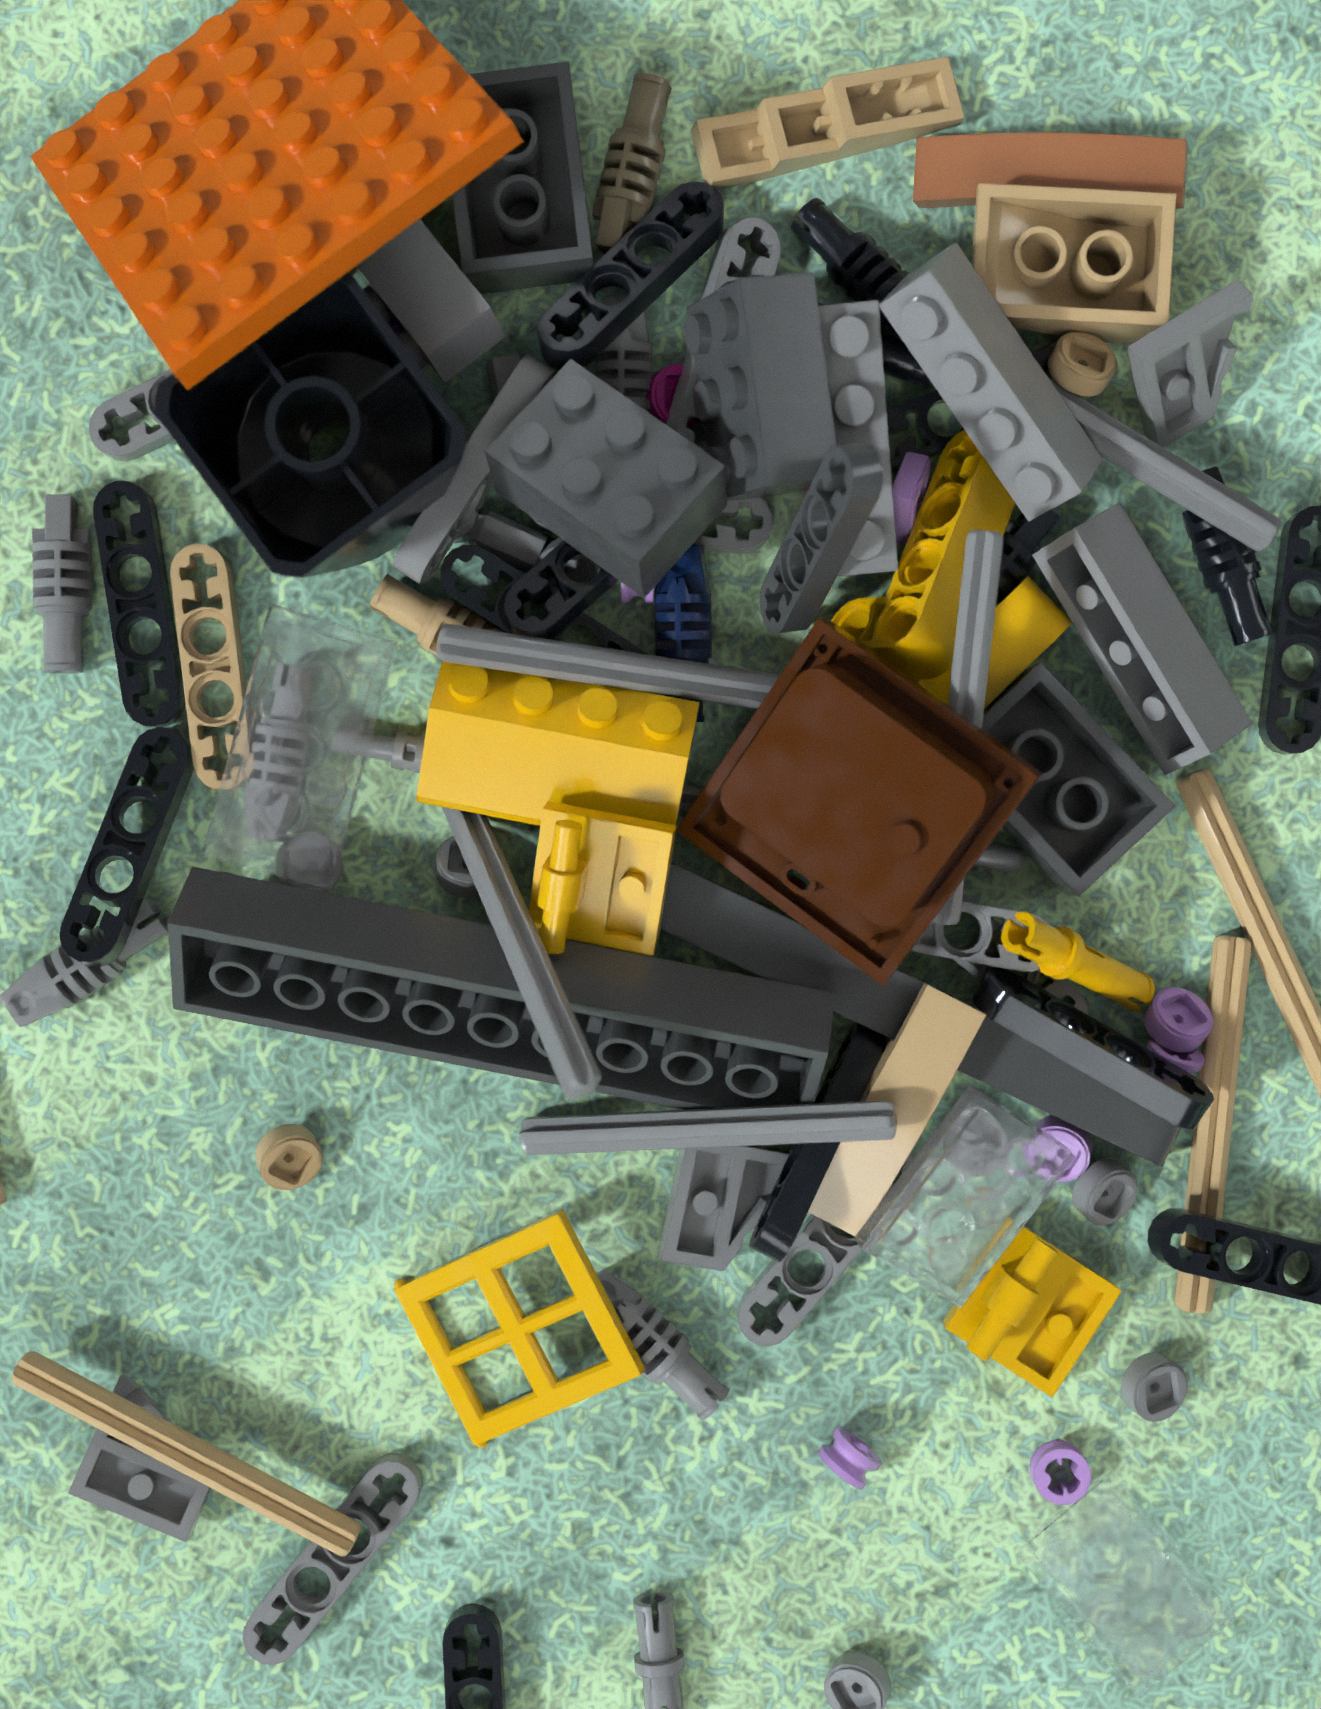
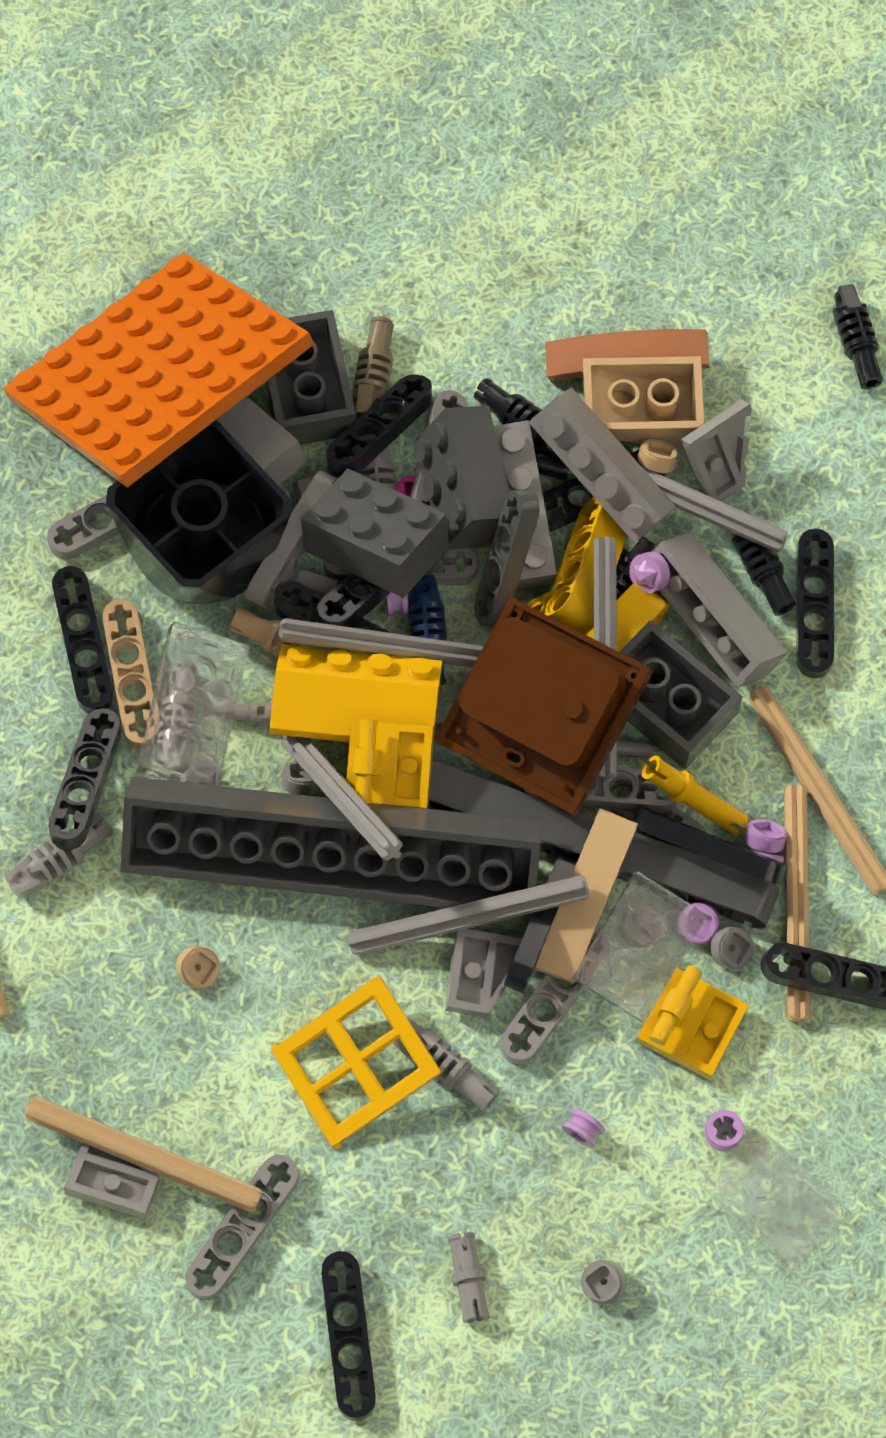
camera: 10 degrees left, 20 degrees down
(62, 583) = (33, 630): light grey hinge -> none
(829, 123) = (488, 339): tan slope -> none
(909, 493) = (560, 535): lavender tile -> none
(1048, 572) = (649, 572): none -> lavender tile
(1154, 1386) = (779, 1068): light grey tile -> none

